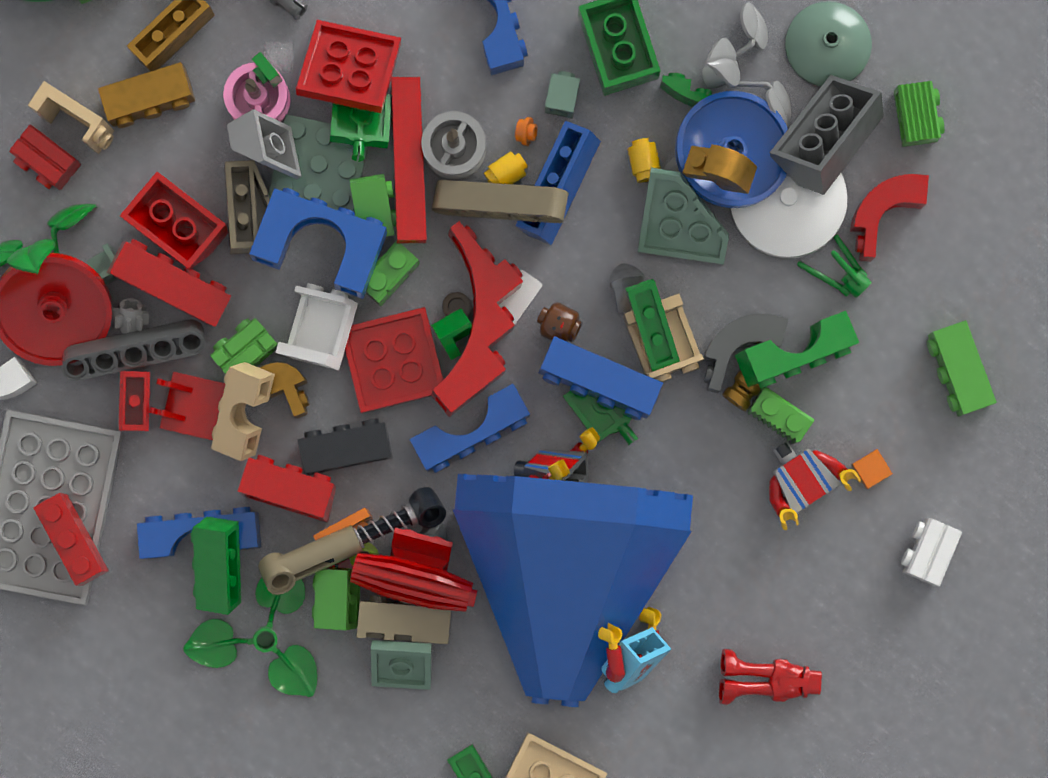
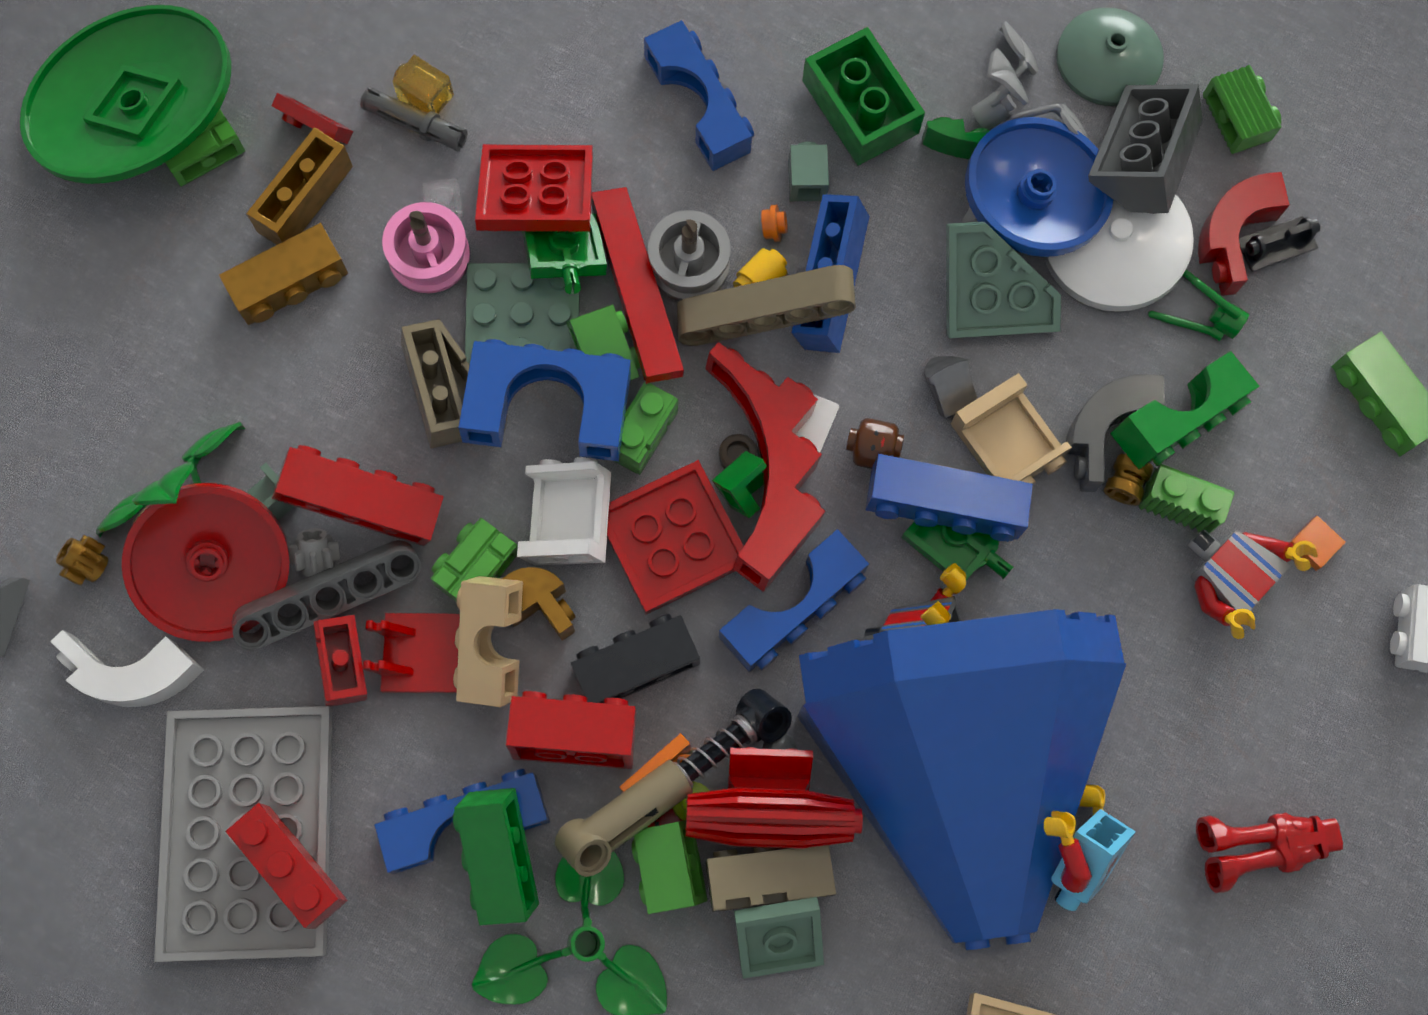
camera: 20 degrees left, 10 degrees down
(44, 157) = (165, 377): red brick -> none
(48, 103) = (163, 300): tan panel -> none
(174, 221) = (351, 416): red slope -> none
(265, 71) = (433, 204): green plate -> none
(265, 142) = (447, 294): light grey slope -> none
(642, 158) = (927, 227): yellow brick -> none
(652, 324) = (997, 416): green plate -> none
(722, 166) = (1039, 196): pearl gold brick -> none
(914, 229) = (1279, 242): none -> black hinge

